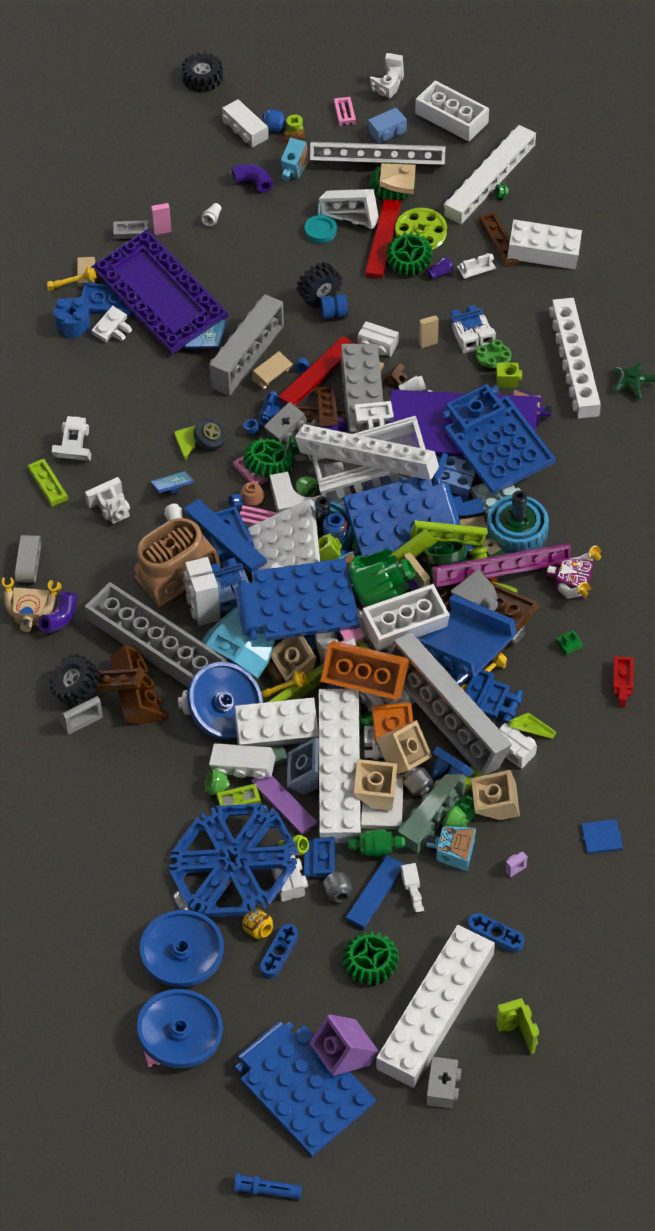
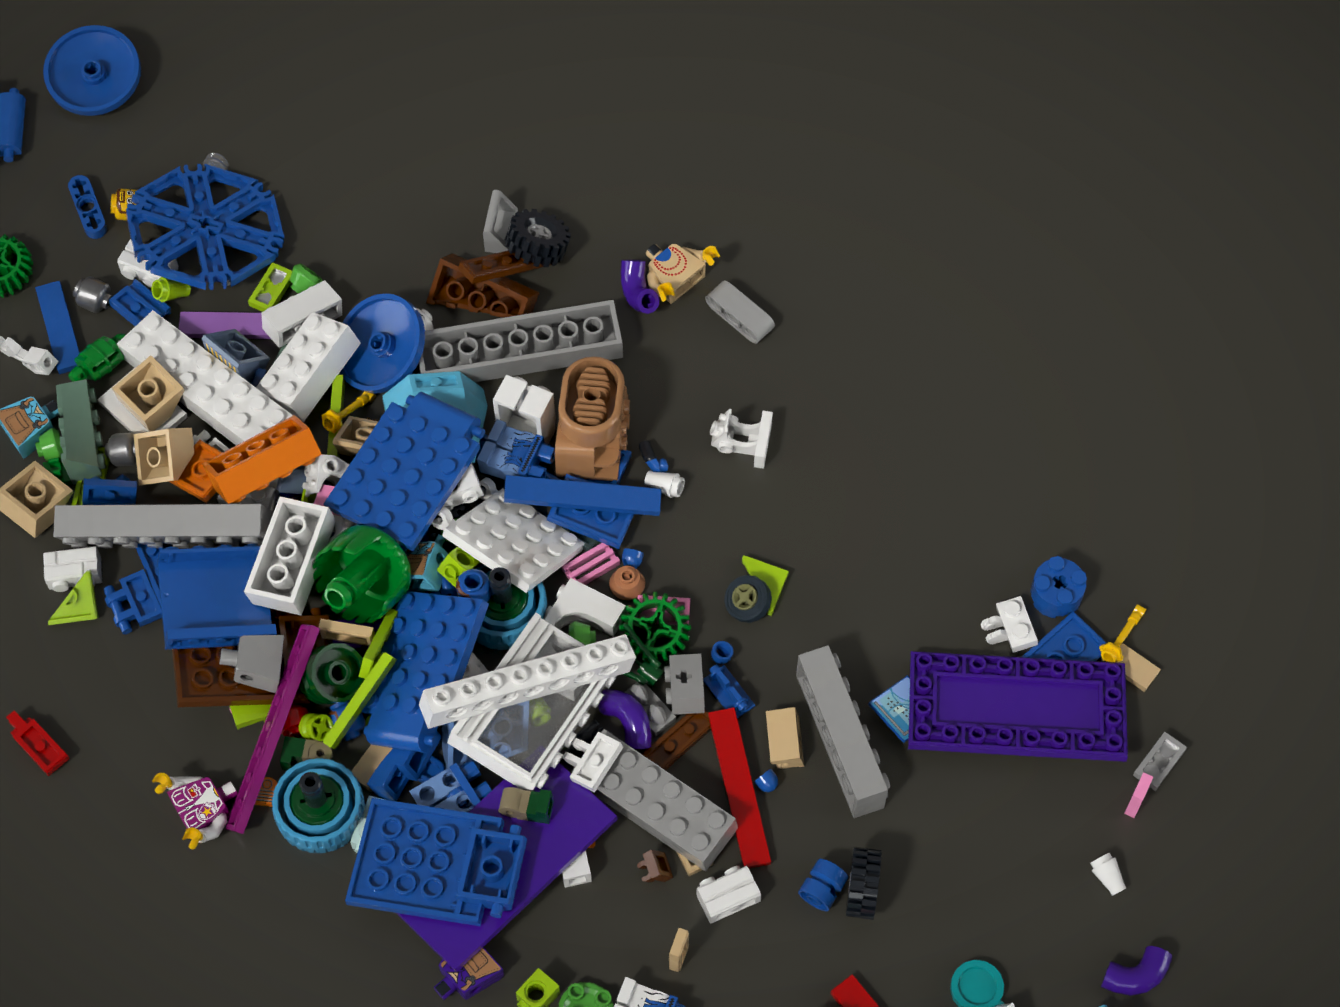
camera: 130 degrees right, 10 degrees up
(47, 482) = (832, 404): lime tile -> none
(73, 448) = (870, 467): white tile -> none
(172, 482) = (714, 511): piece -> none
(181, 948) = (164, 125): blue dish -> none
(327, 406) = (669, 743): reddish brown tile -> none
(414, 384) = (621, 876): white cone -> none
(428, 426) = (527, 804): none -> leg
(569, 643) = (133, 734): green tile -> none

